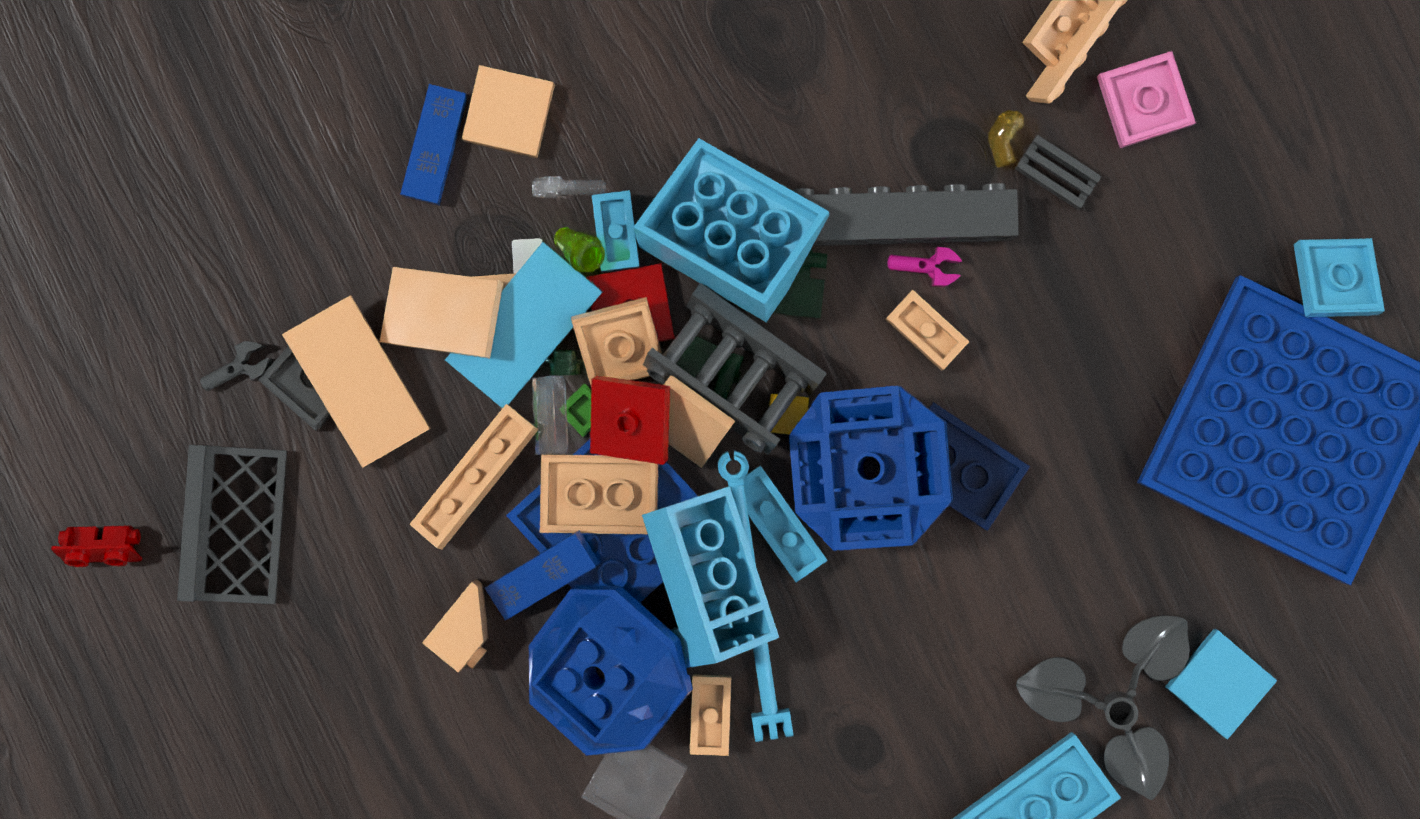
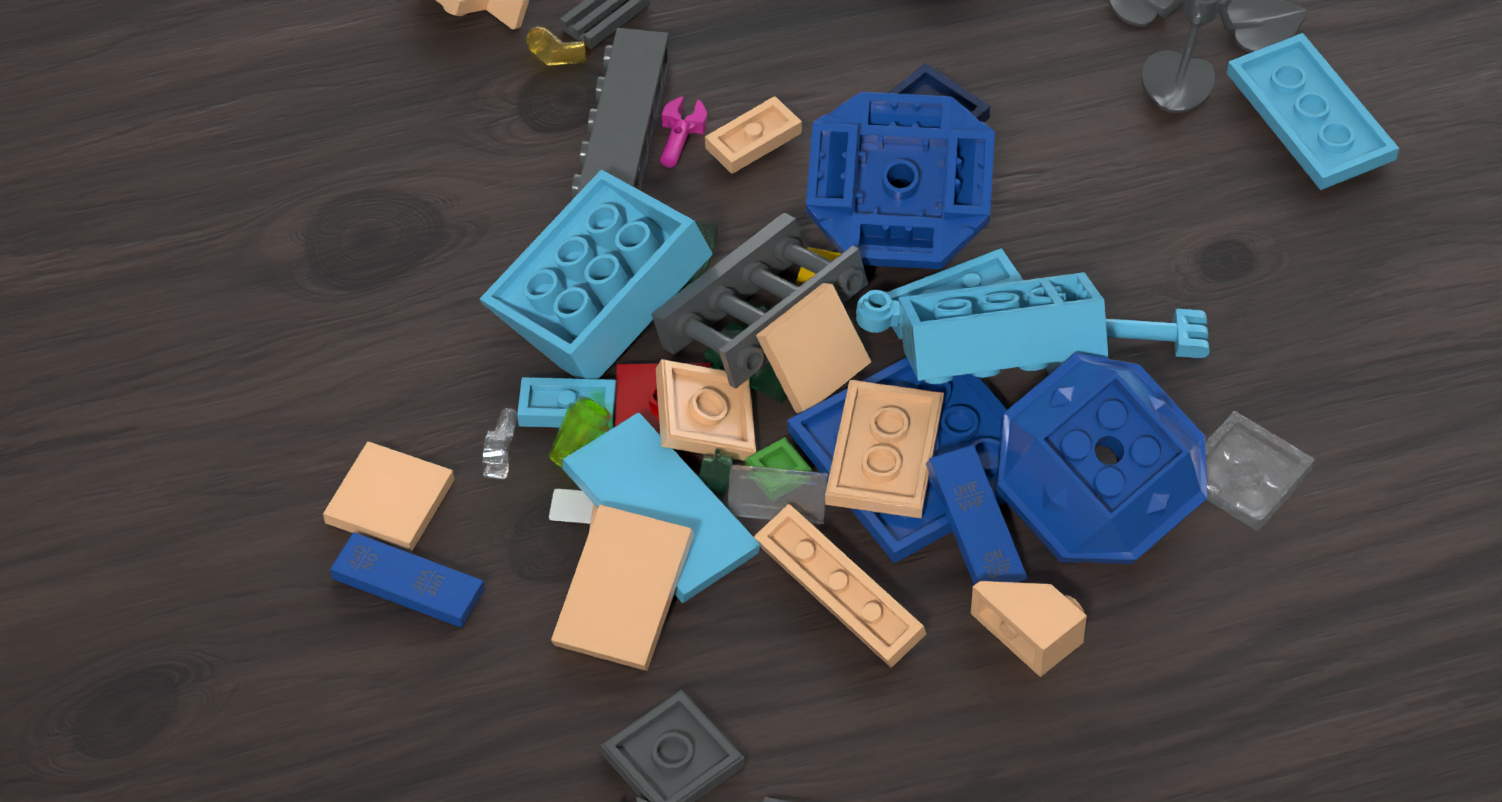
camera: 80 degrees left, 35 degrees down
(356, 381) = (690, 694): light nougat tile -> none
(630, 419) = (800, 387): red plate -> none
(710, 715) = (1189, 385): light nougat plate -> none

